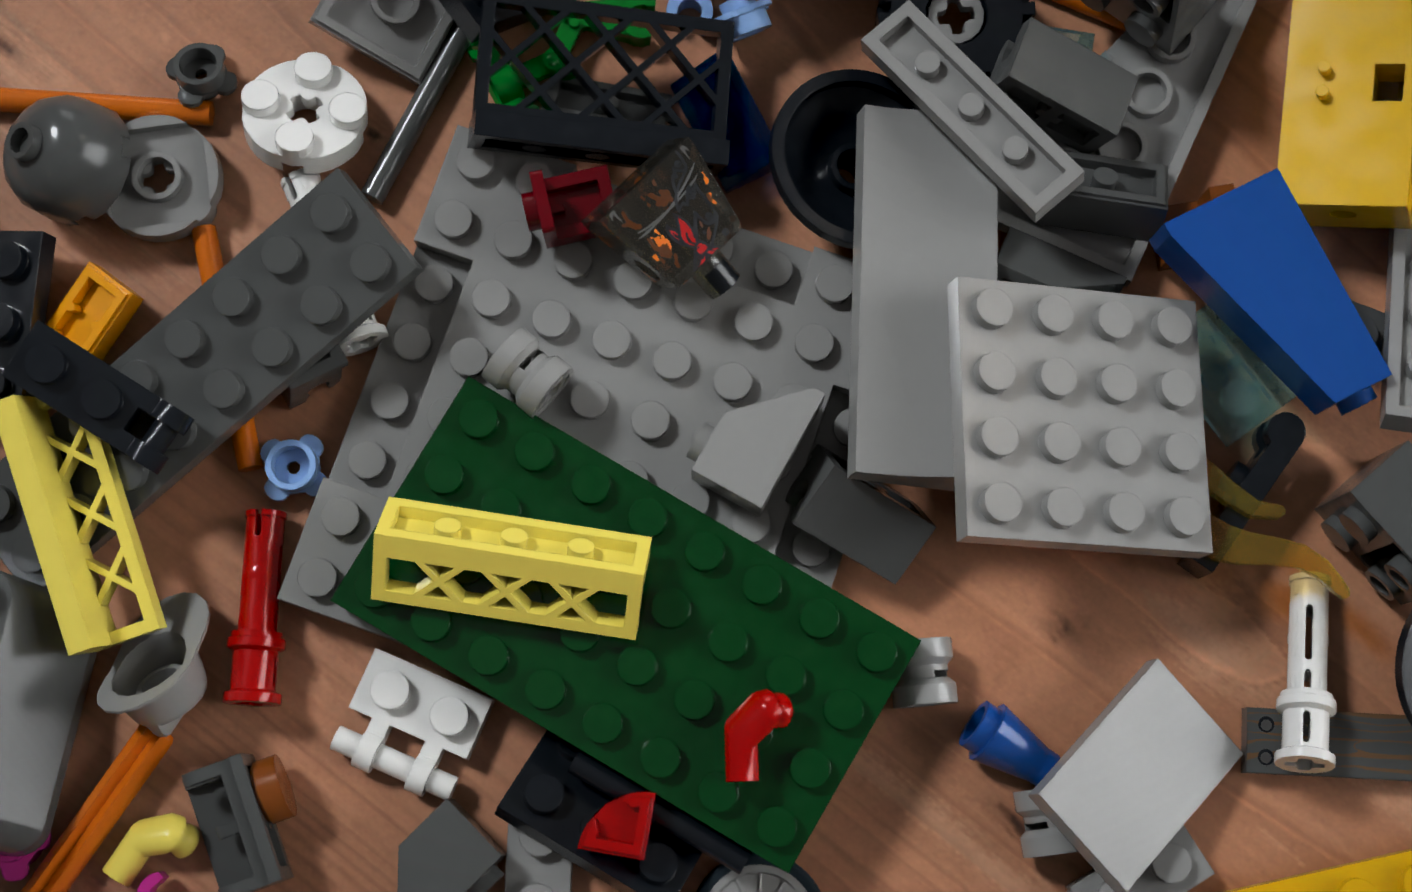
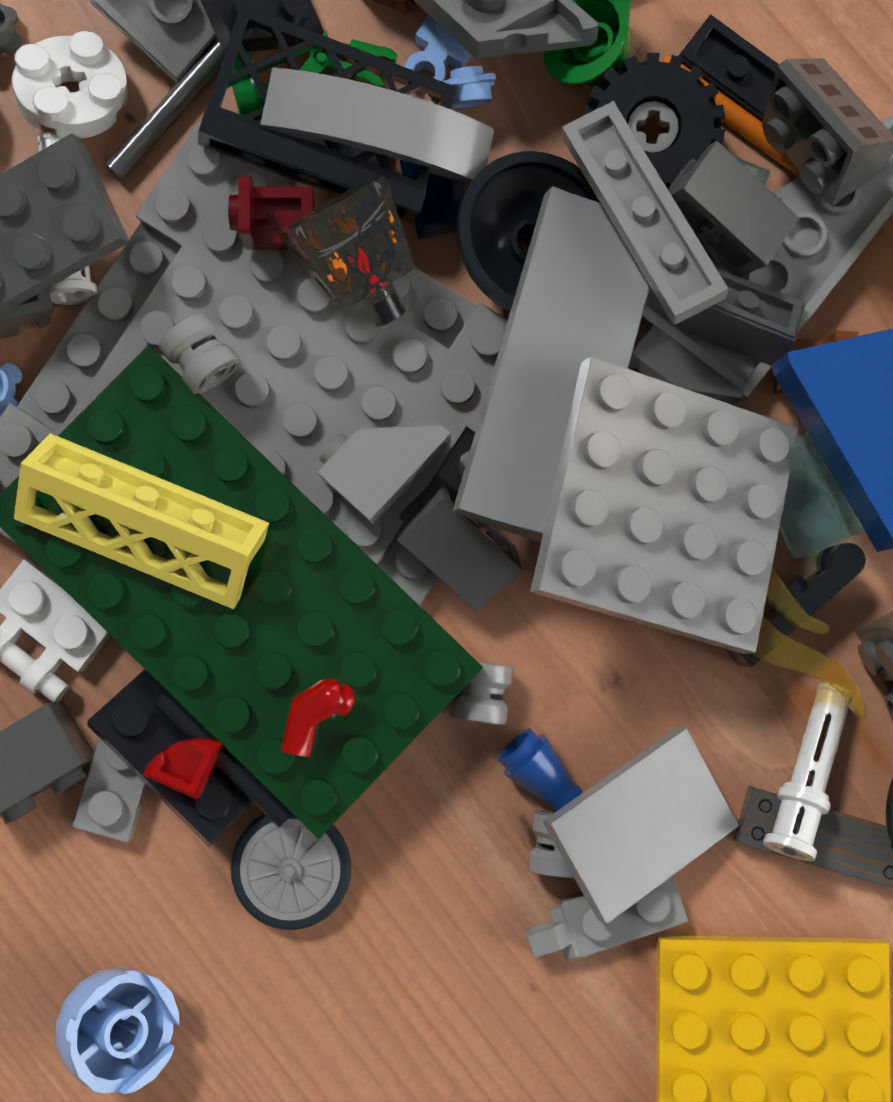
camera: 15 degrees right, 5 degrees up
(658, 80) = (376, 121): none -> light grey slope

